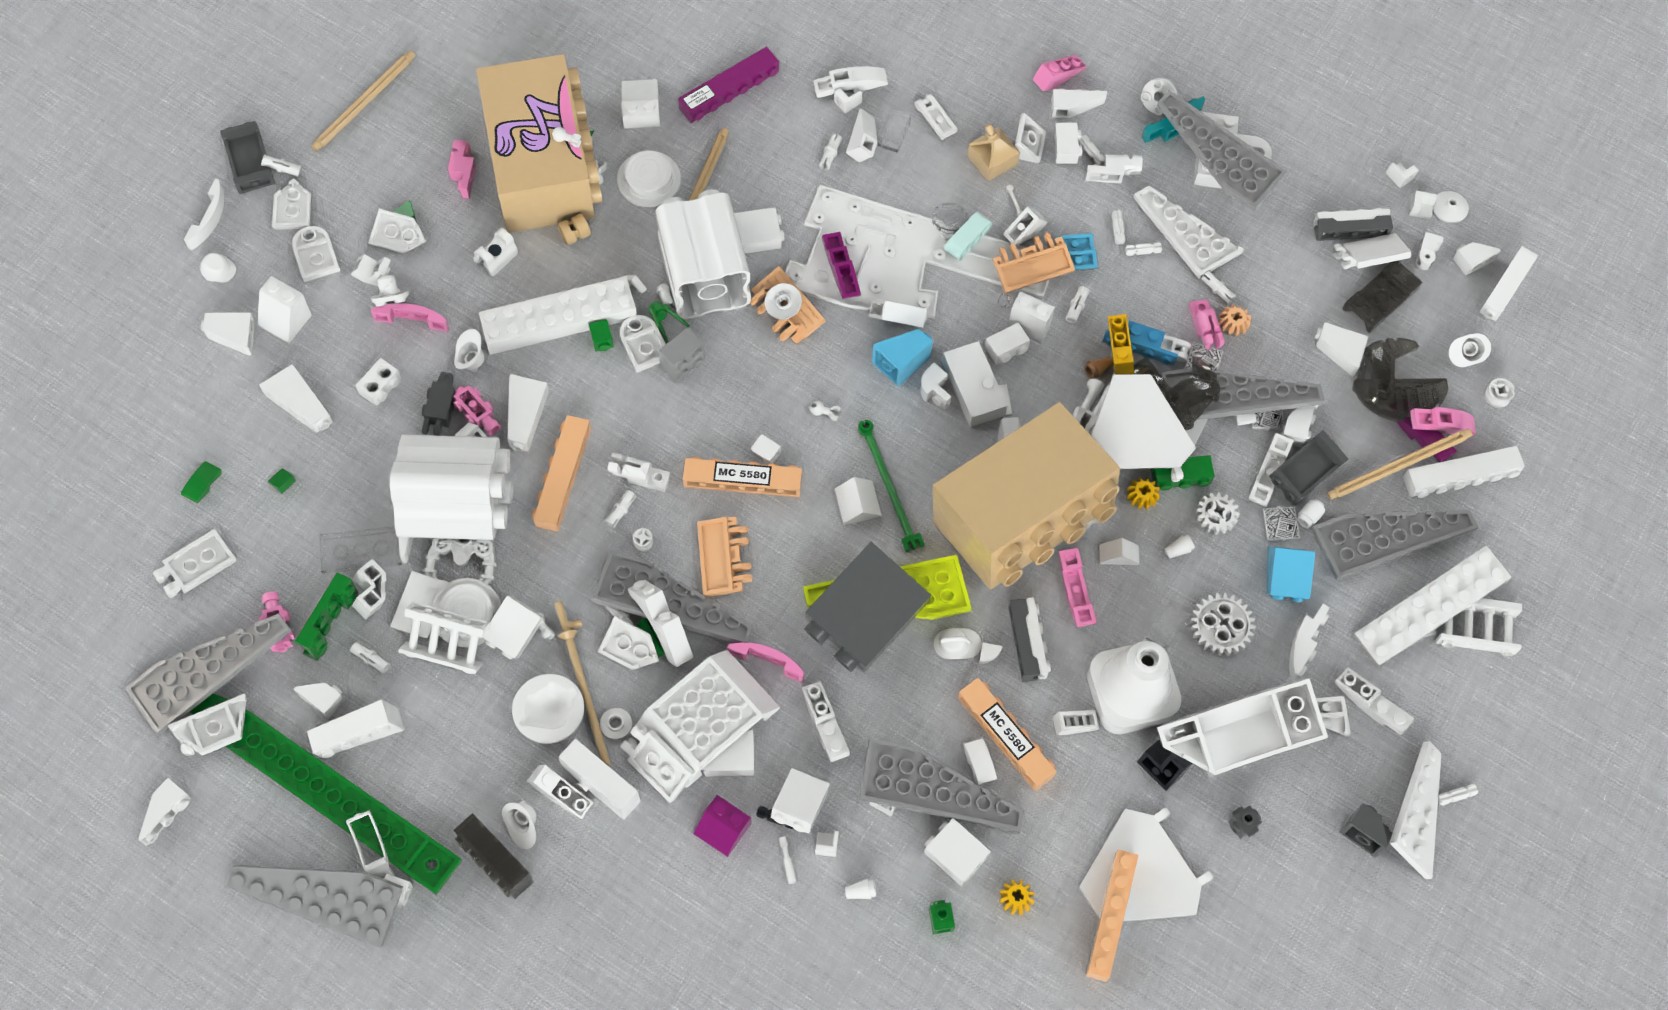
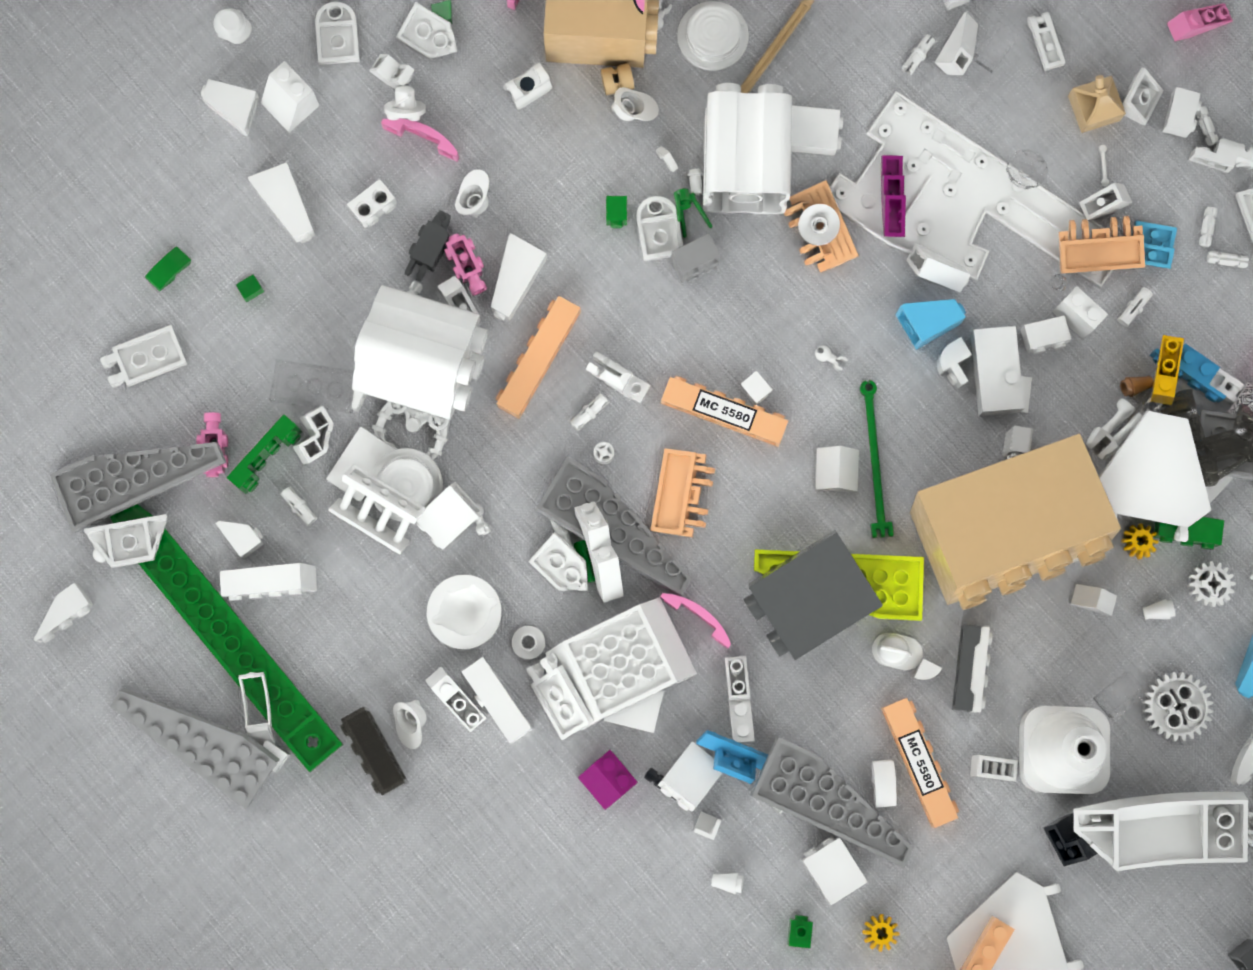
camera: 15 degrees right, 15 degrees up
(556, 315) = (576, 175): white brick -> none
(568, 636) = (502, 538): tan piece -> none
(592, 246) = (634, 105): none -> white piece
(787, 861) = (663, 832): white piece -> none
(832, 769) = (733, 757): none -> dark azure bracket
(968, 236) = (1040, 196): light aqua beam -> none
(1074, 102) = (1202, 63): white slope -> none
(1075, 587) = (1037, 626): bright pink slope -> none
(1240, 826) = (1127, 918): dark grey brick -> none

